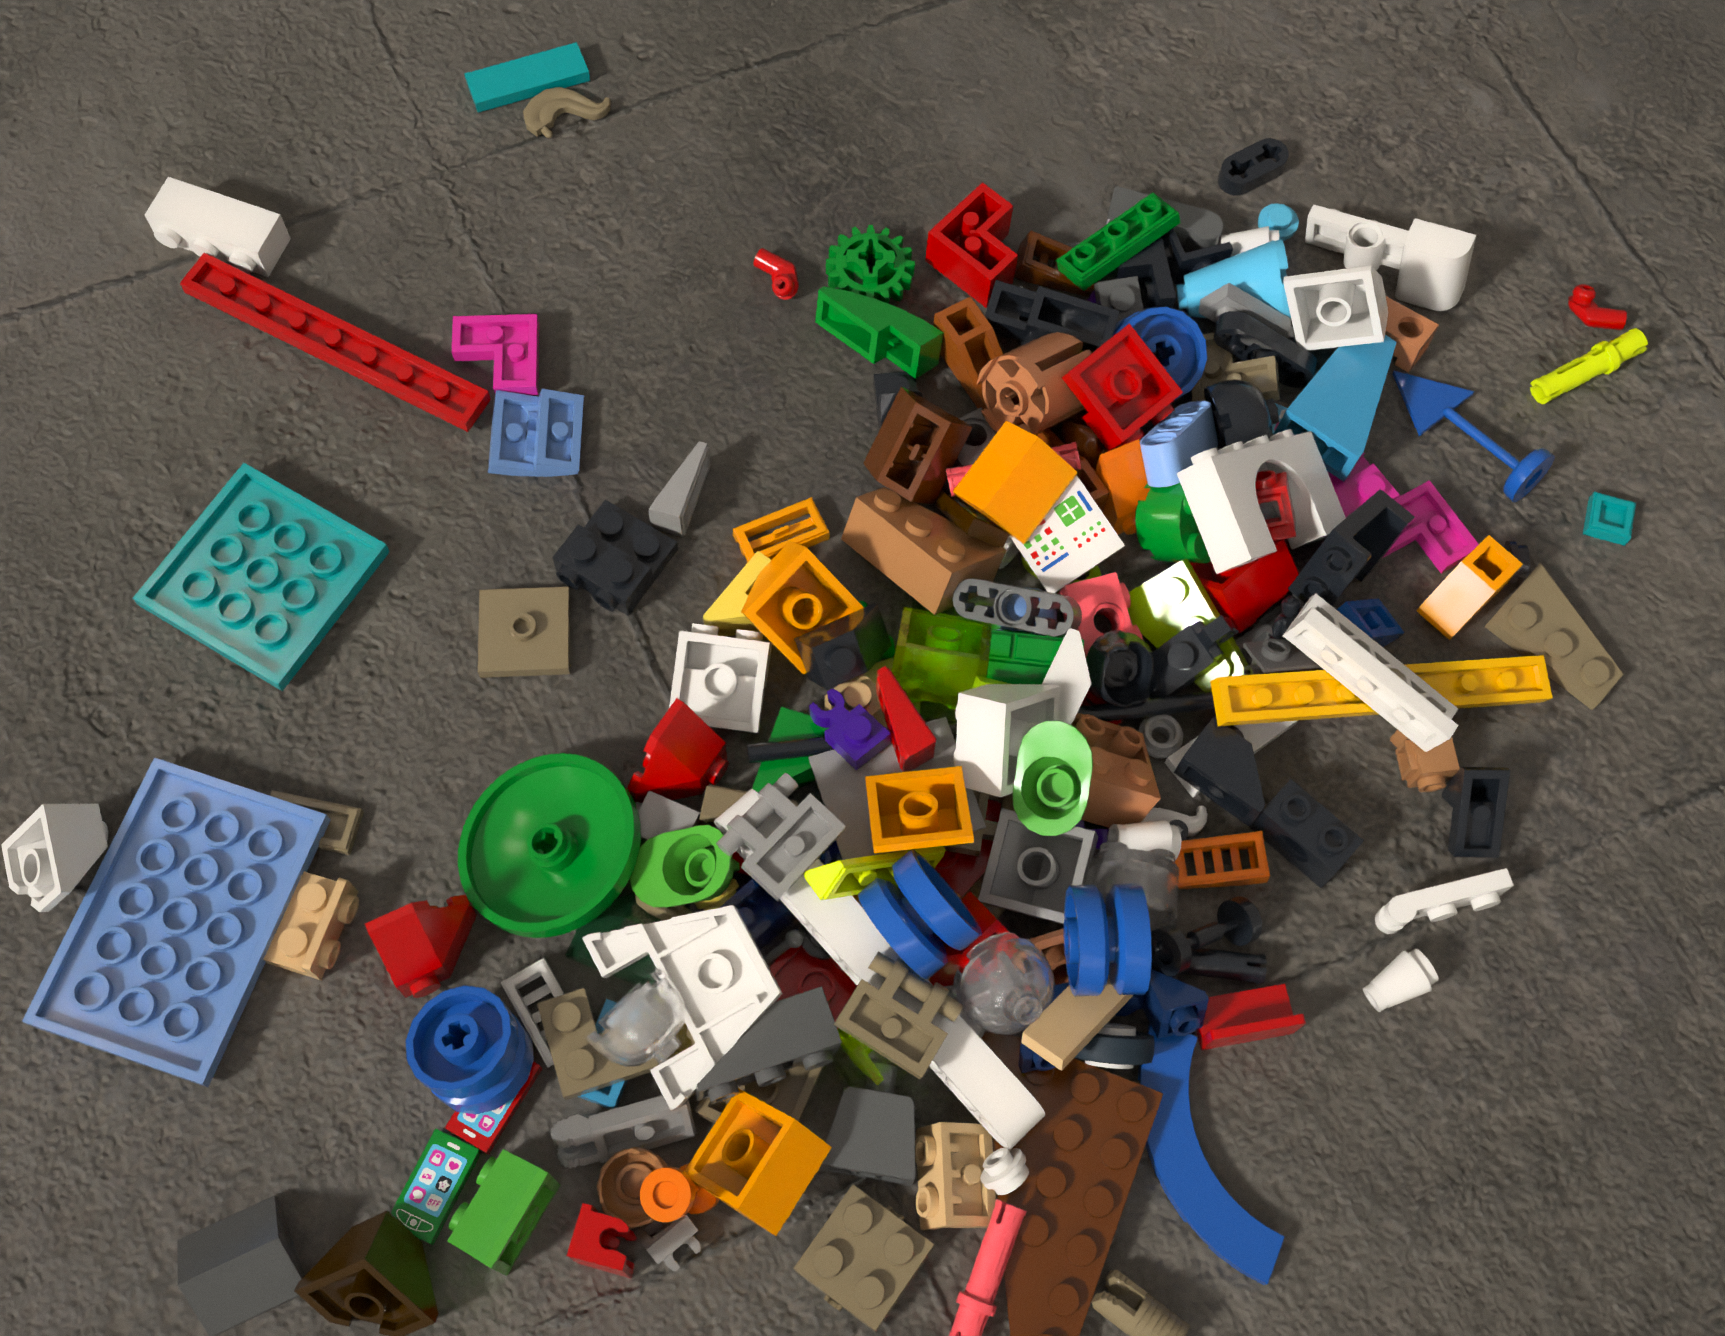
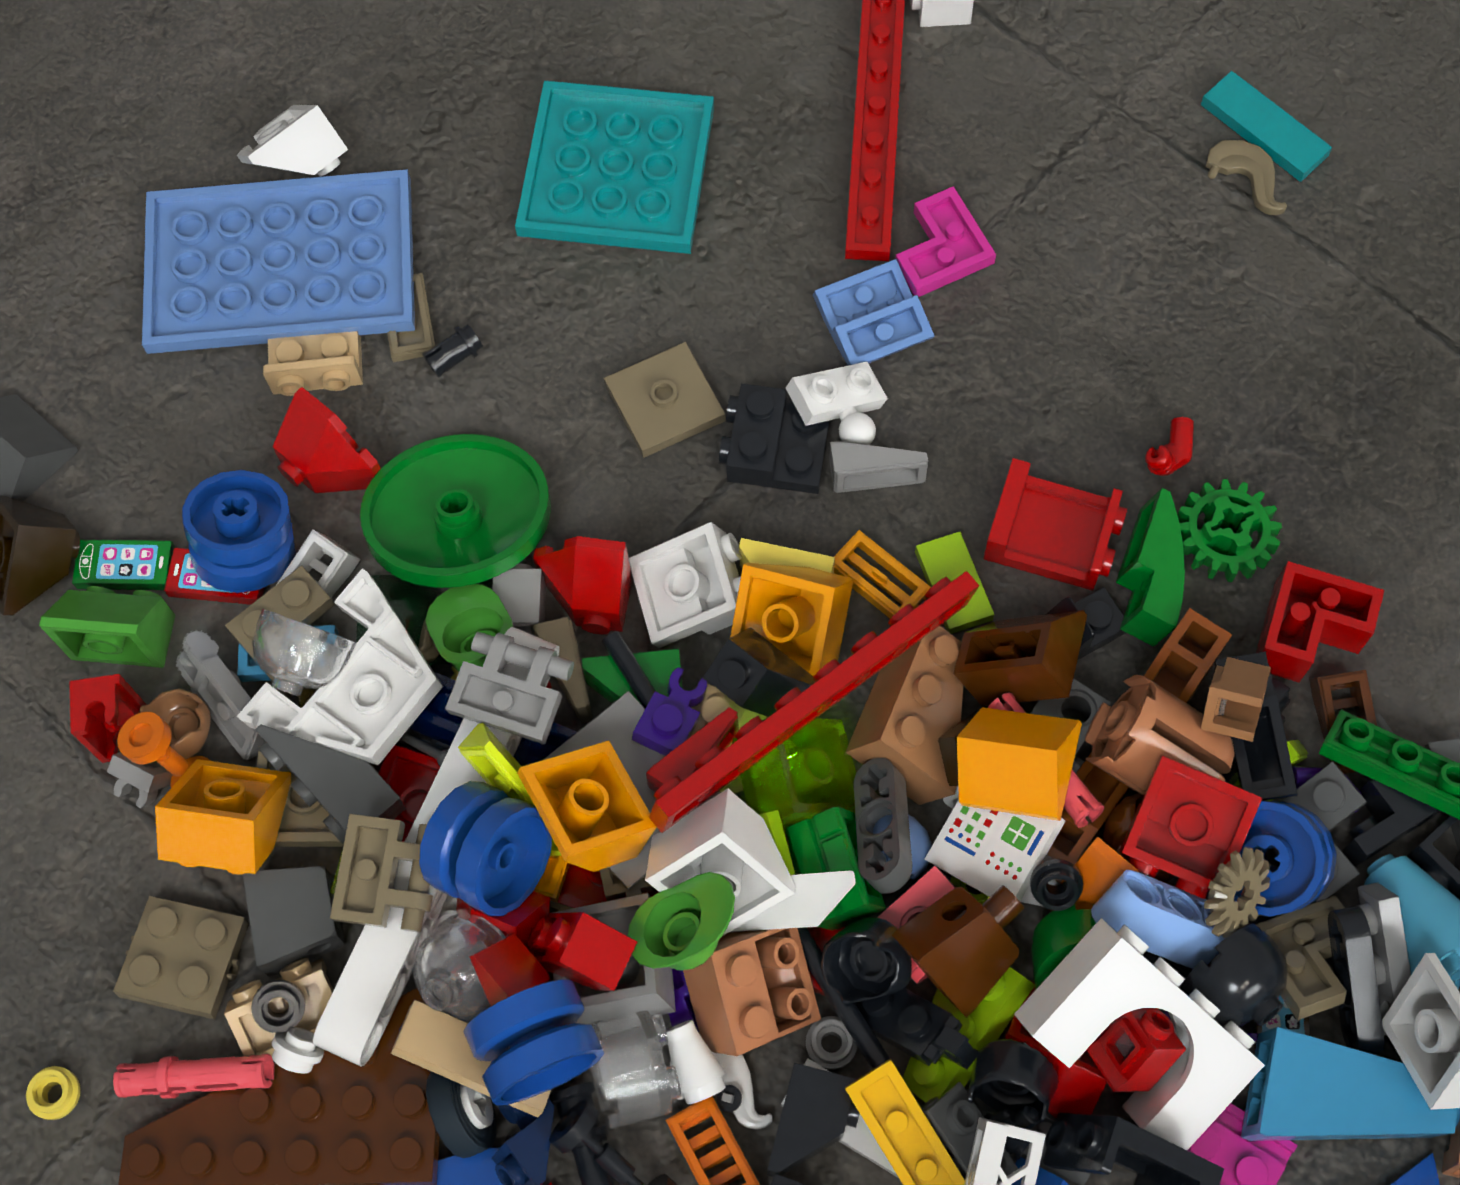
camera: 75 degrees right, 0 degrees up
(374, 791) = (453, 350): none -> black pin
(602, 489) = (840, 394): none -> white plate
(805, 385) = (1054, 529): none -> red panel
(820, 478) = (950, 559): none -> lime tile
(907, 612) = (798, 708): none -> red plate
(973, 1168) = (273, 1021): none -> plate
(1032, 306) = (1236, 699): none -> medium nougat window
(1034, 877) = (581, 949): none -> red slope
(1036, 937) = (507, 969): none -> red slope
(1121, 504) = (1056, 896): none -> black plate
(1142, 588) = (963, 944): none -> reddish brown torso
(1186, 380) = (1245, 871): none -> dark tan gear
(1258, 602) = (1013, 1076): none -> black hair

